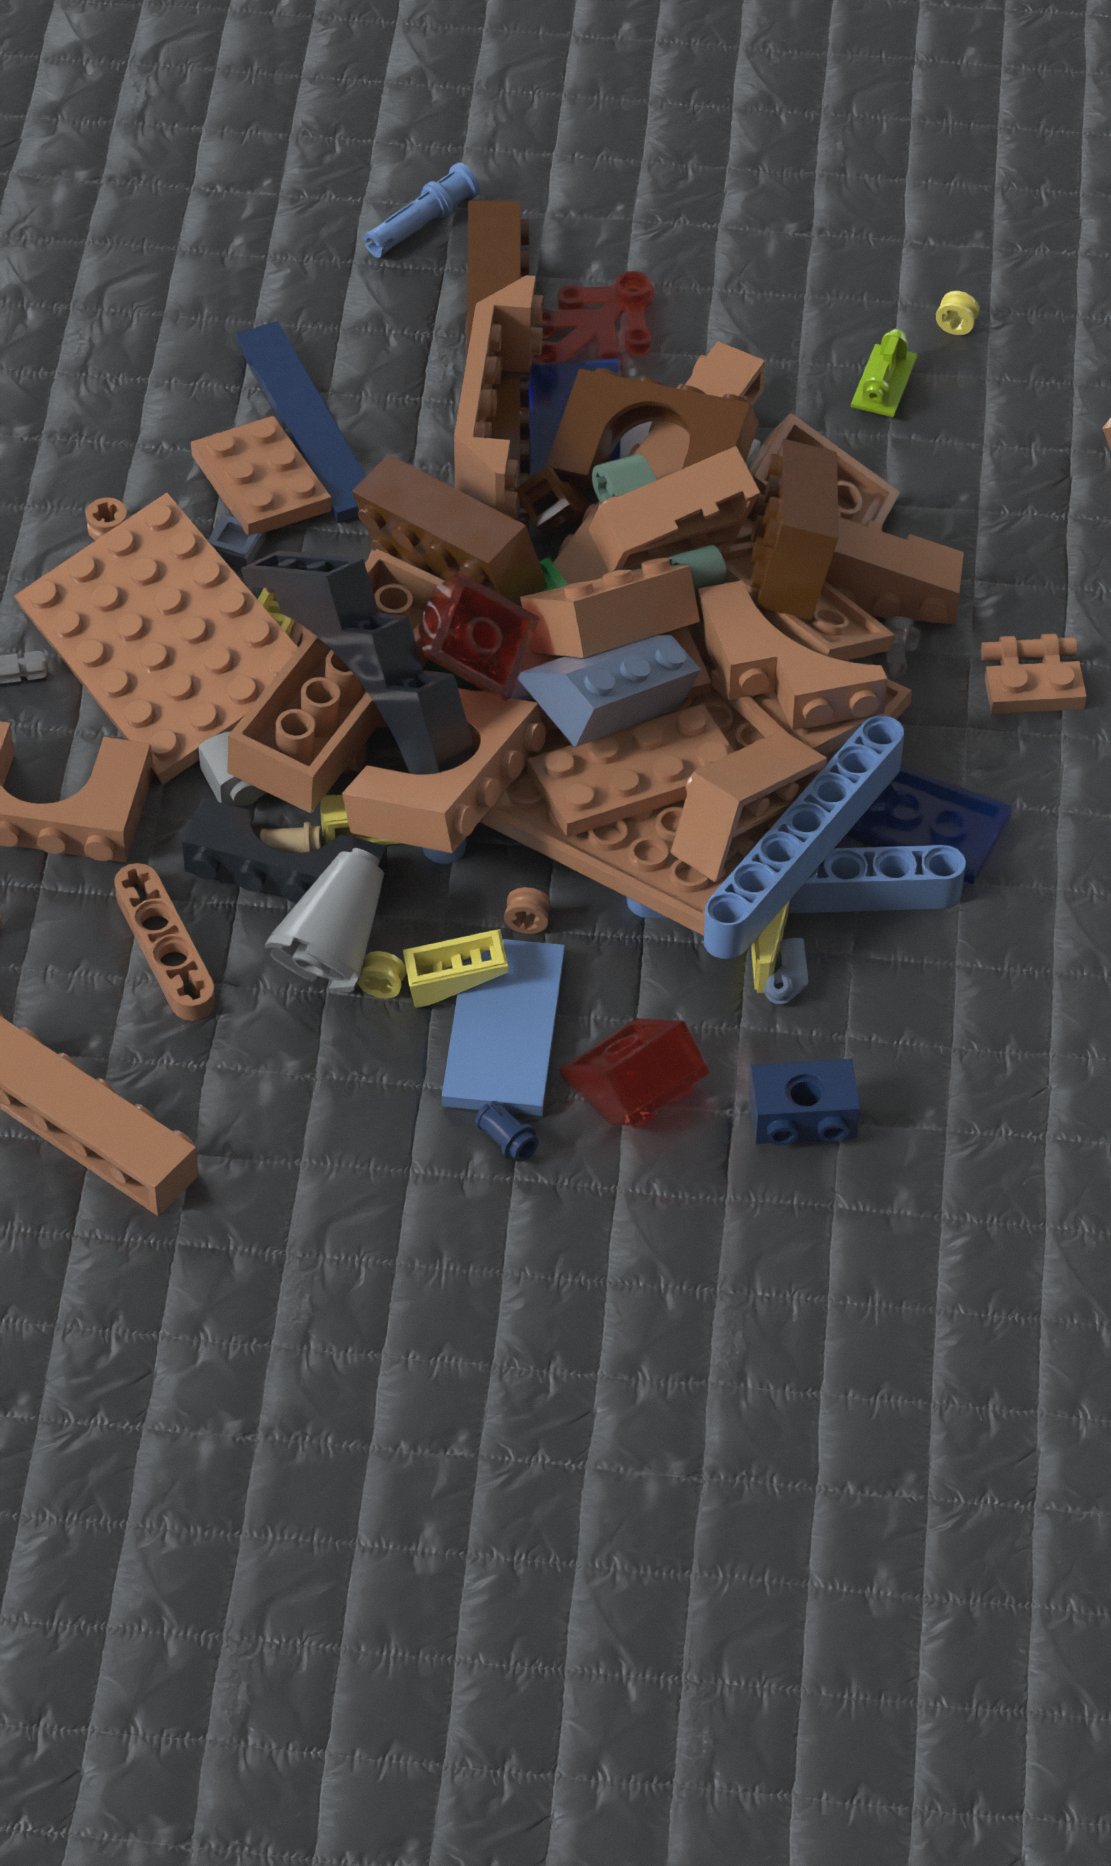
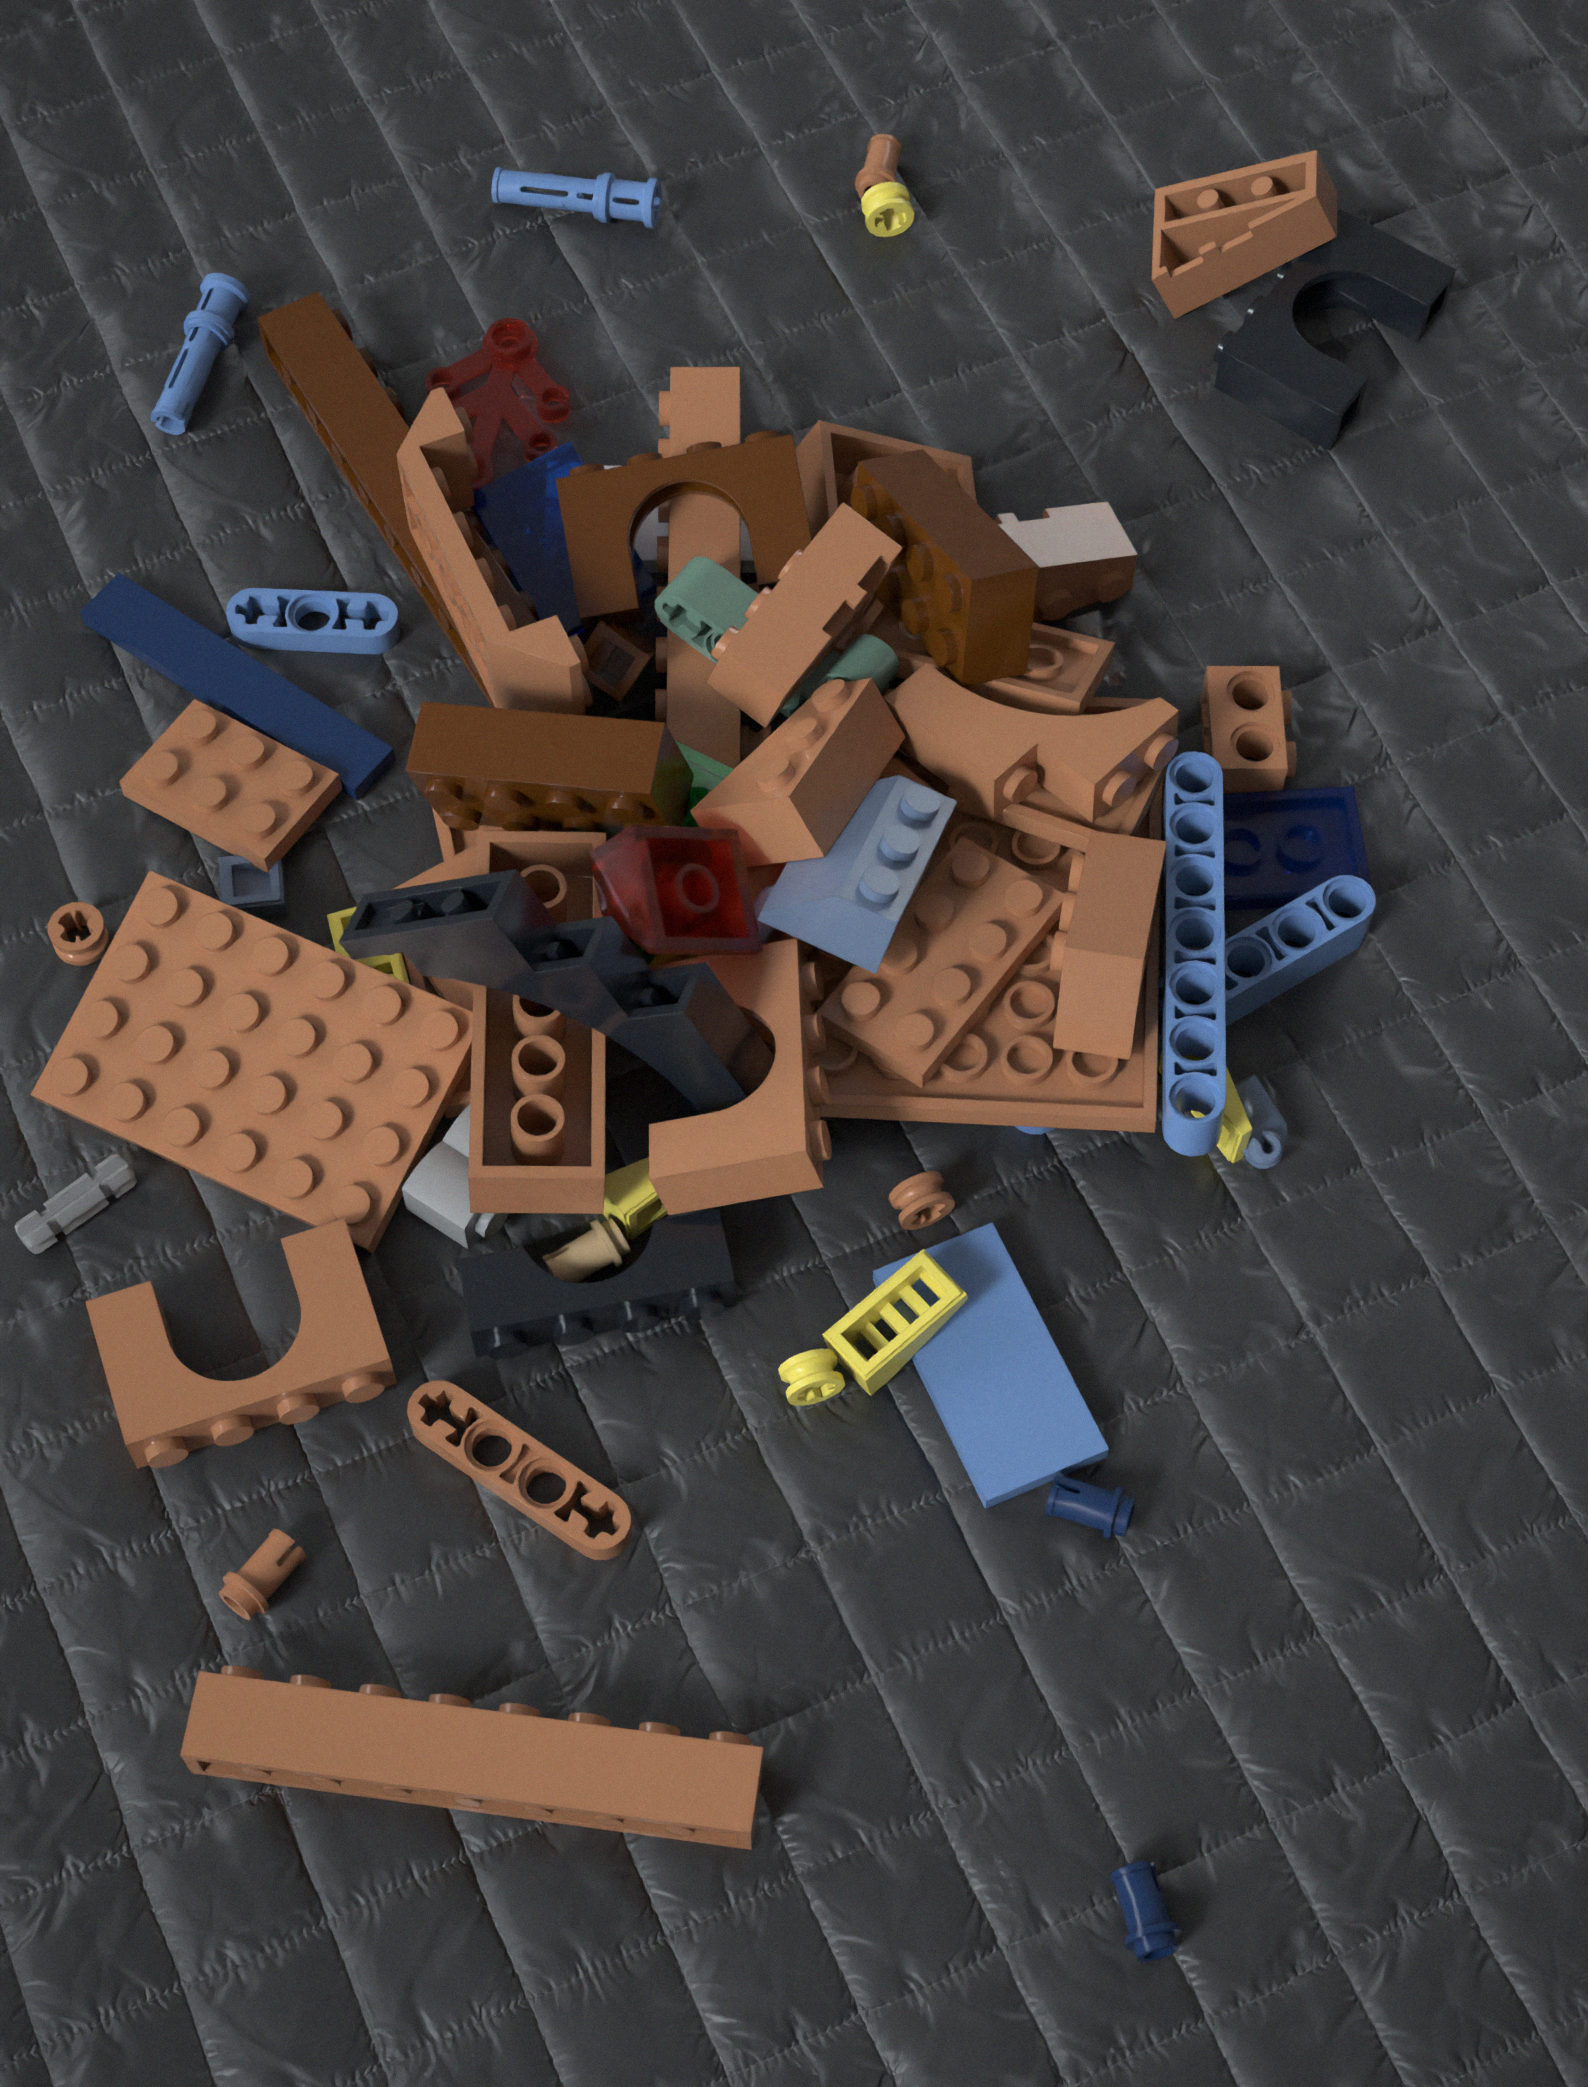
camera: 30 degrees left, 10 degrees up
(332, 922) = (728, 1345): light grey cone -> none
(367, 1375) = (1145, 1912): none -> dark blue pin
(410, 417) = (297, 603): none -> medium blue beam
(638, 1070) = (1183, 1343): clear red slope -> none
(760, 223) = (512, 187): none -> medium blue pin
(824, 1086) = (1411, 1251): dark blue brick -> none
(885, 375) = (859, 321): lime hinge -> none
(959, 736) = (1238, 733): none -> nougat brick
(976, 282) = (880, 163): none -> nougat pin
(1036, 686) = (1270, 626): nougat plate -> none

